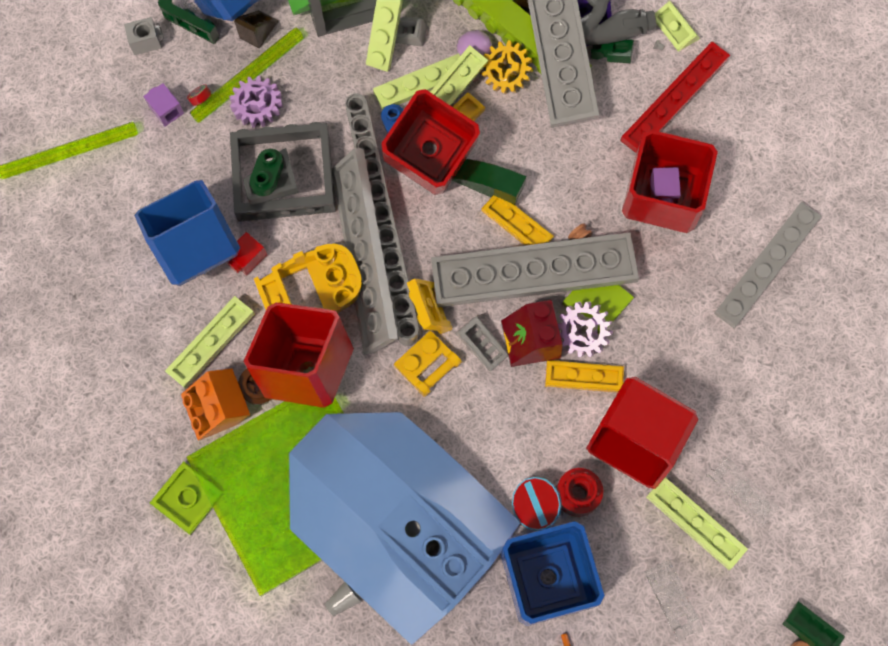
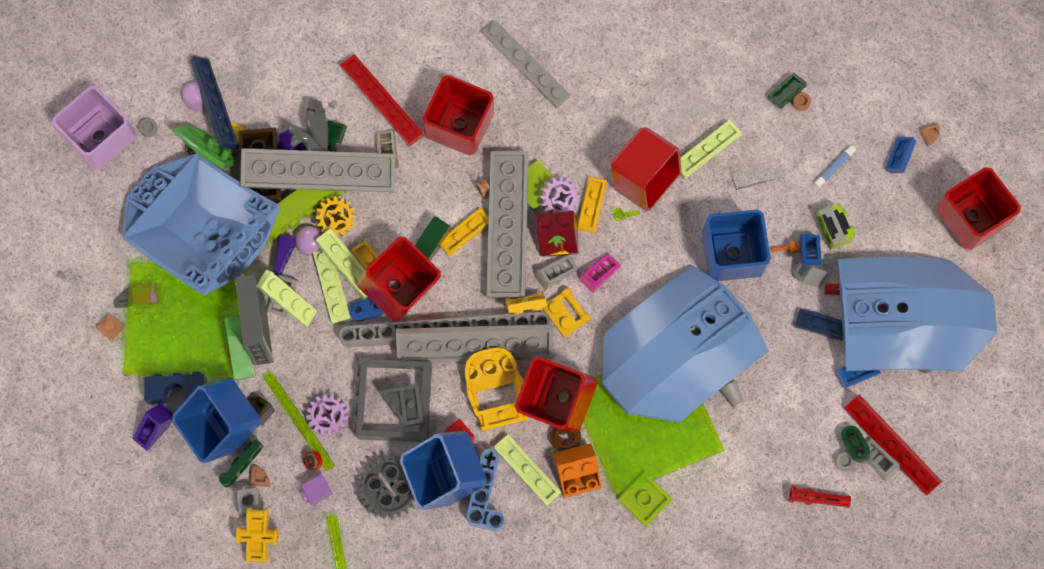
camera: 85 degrees left, 0 degrees up
(105, 44) = (257, 535): none -> yellow axle
(160, 170) = (374, 497): none -> dark grey gear
(175, 44) = (259, 477): none -> nougat tile
(180, 295) = (482, 507): none -> medium blue beam
(266, 170) = (401, 405): dark green plate -> none
(449, 20) = (284, 250): none -> dark purple slope
(477, 400) = (591, 281): none -> dark pink slope
(536, 503) = (681, 251): red piece -> none
(575, 414) = (620, 215): none -> clear neon green hand
(589, 482) = (679, 212): red piece -> none
(602, 124) = (387, 134): none -> dark tan slope
(665, 184) = (460, 119): medium lavender brick -> none
(675, 26) = (319, 88): yellowish green slope -> none

